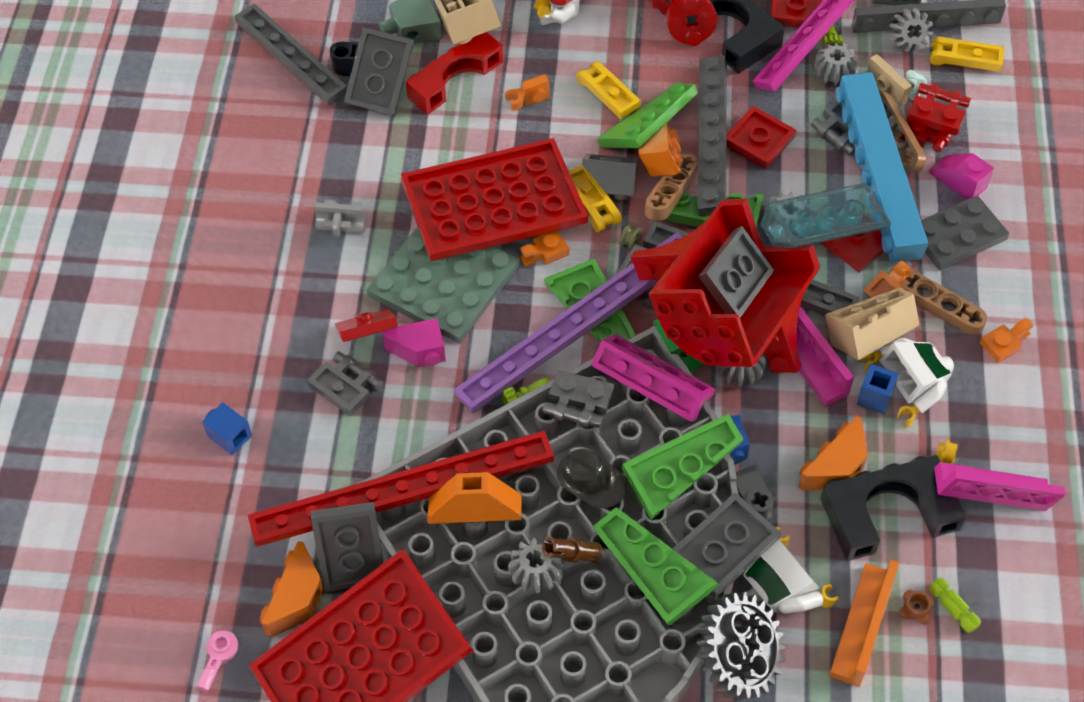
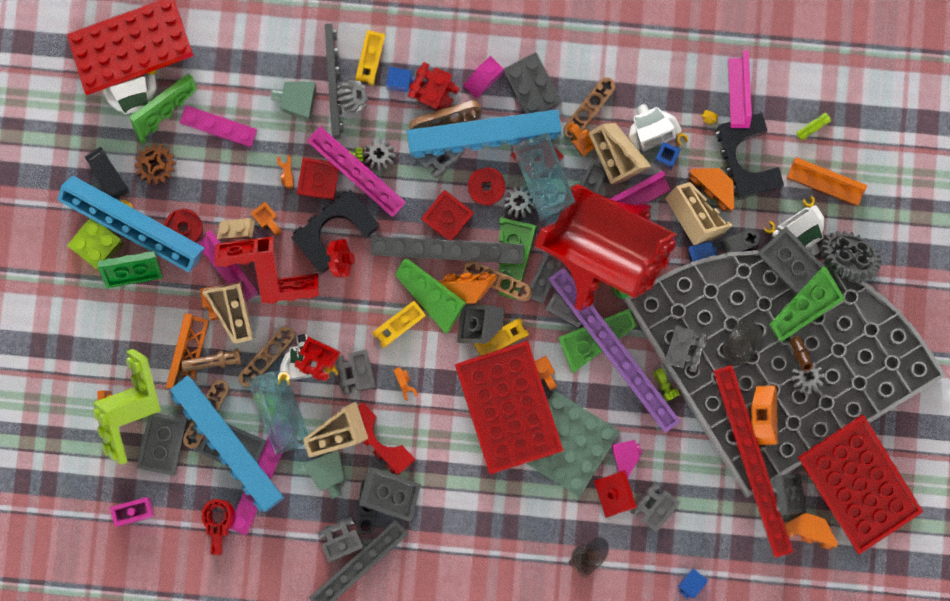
camera: 85 degrees left, 25 degrees up
(221, 648) = (845, 573): bright pink plate -> none
(277, 298) = (589, 557): none -> clear smoke piece
(322, 33) = (343, 545): none -> flat silver plate
(340, 217) = (521, 518): light grey hips -> none
(543, 47) = (361, 372): none -> flat silver plate
(630, 236) = (537, 312): olive bush -> none
(652, 376) = (671, 301): dark pink fence -> none
(676, 465) = (733, 284): bright green wing -> none
(736, 273) = (594, 240): dark grey plate -> none
(787, 428) = (695, 215): none -> tan wedge
(809, 166) = (487, 197): none -> red plate
(889, 80) = (396, 118): tan plate -> none
(916, 79) = (400, 100): light aqua plate -> none
(918, 598) = (820, 146): dark orange plate -> none
(944, 75) = (399, 79): none -> blue brick
(1004, 342) = (623, 69): orange plate -> none

